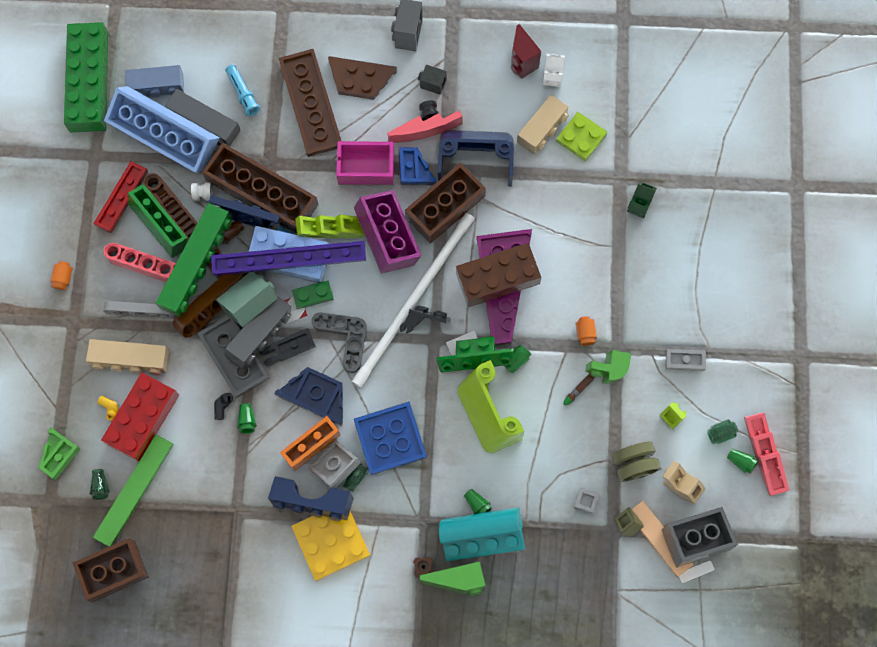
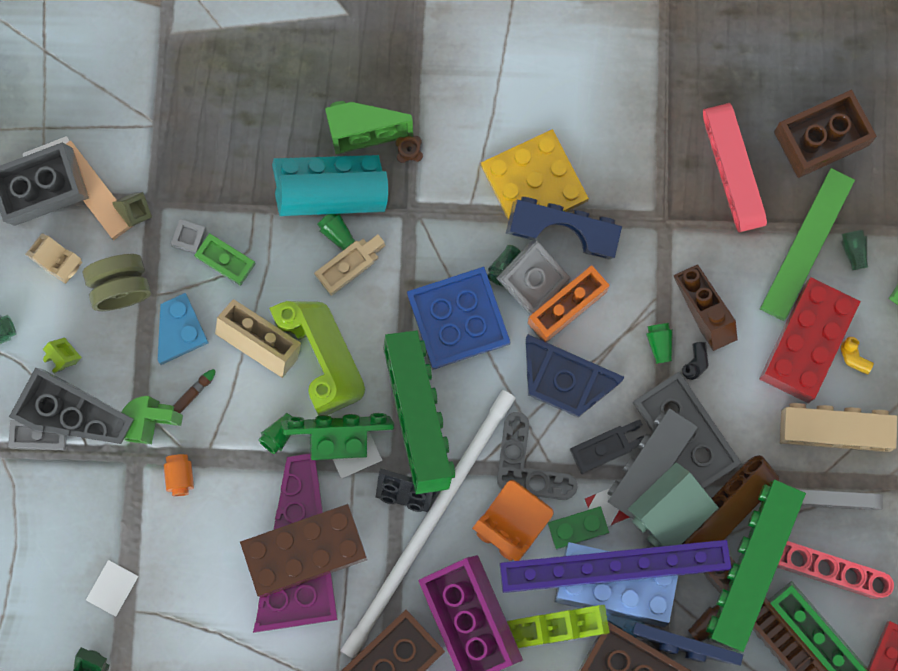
camera: 175 degrees right, 5 degrees up
(181, 548) = (734, 167): none -> coral beam
(212, 444) = (707, 308): none -> reddish brown slope
(357, 295) = (513, 521): none -> orange bracket
(420, 365) = (417, 412): none -> green brick
(468, 478) = (349, 264): none -> tan hinge
(534, 422) = (257, 338): none -> tan brick
(559, 483) = (225, 259): none -> bright green plate
(590, 434) = (178, 329): none -> dark azure wing
(628, 261) = (112, 588): none -> white sticker
(668, 374) = (63, 409): none -> dark grey wedge

